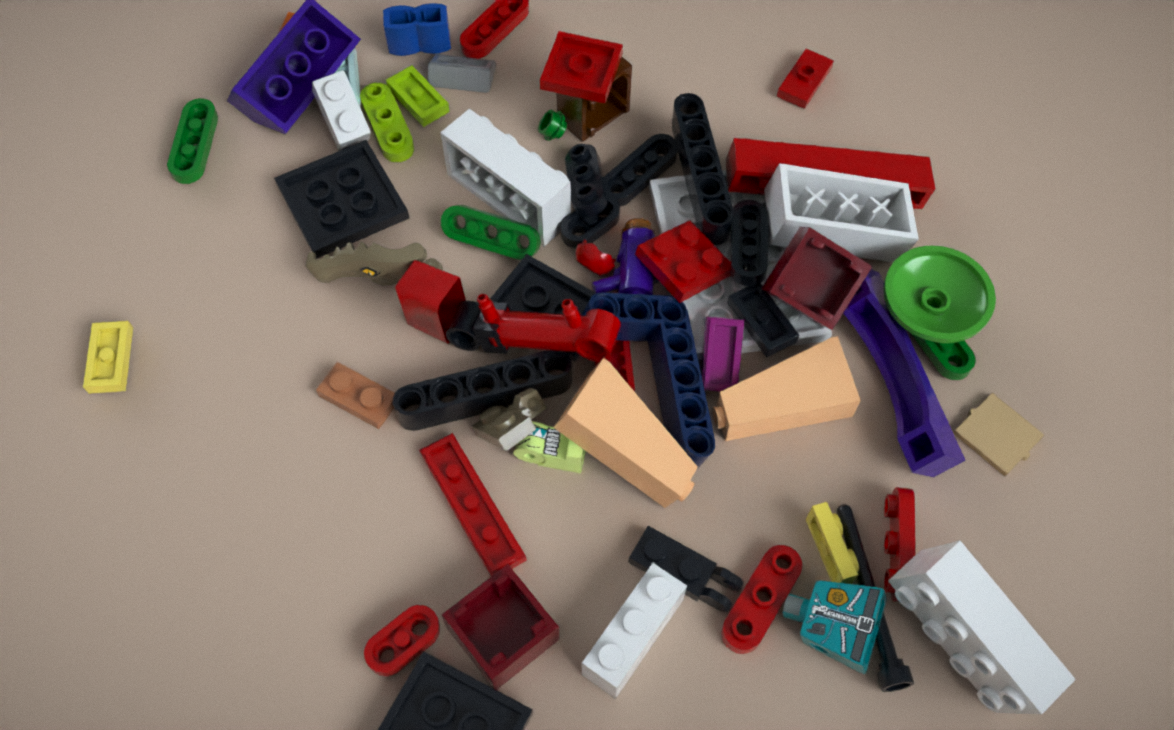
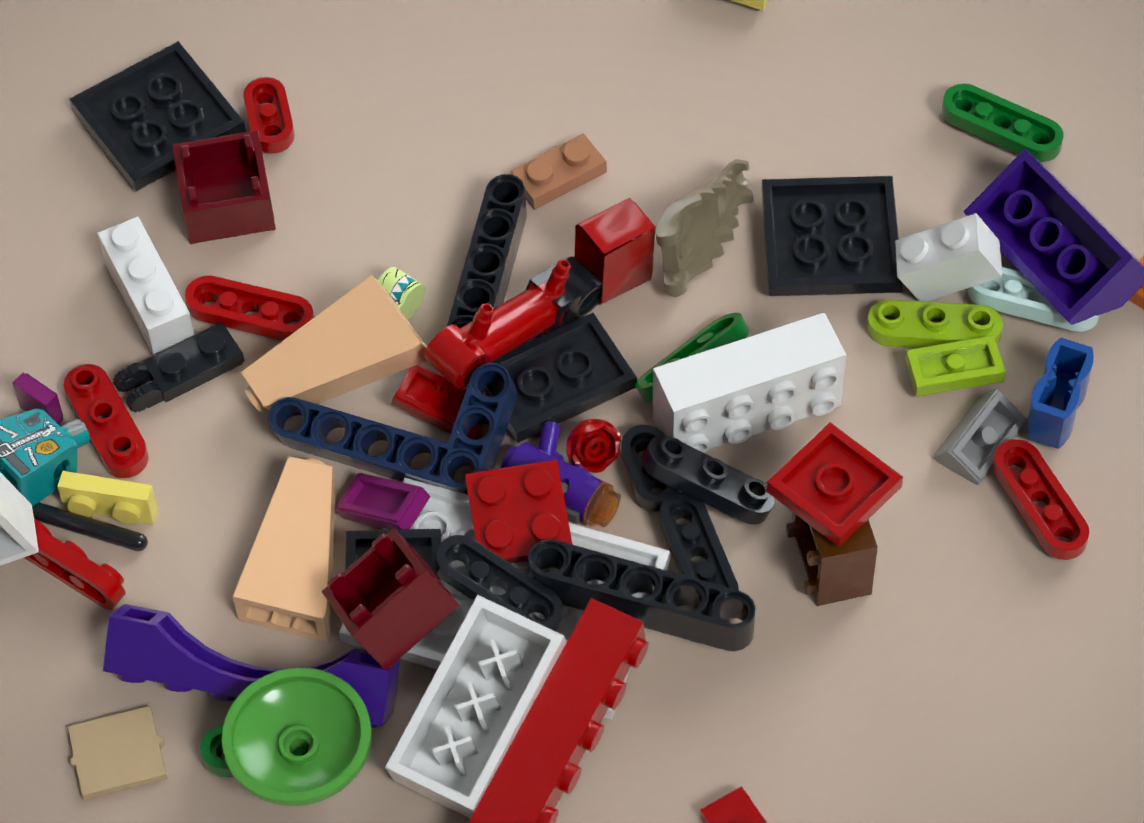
camera: 120 degrees right, 5 degrees down
(472, 505) = (370, 222): red tile -> none
(510, 425) = (429, 263): dark tan hinge -> none
(605, 528) = (236, 299): none -> red plate
(784, 653) = (34, 394): none -> magenta tile

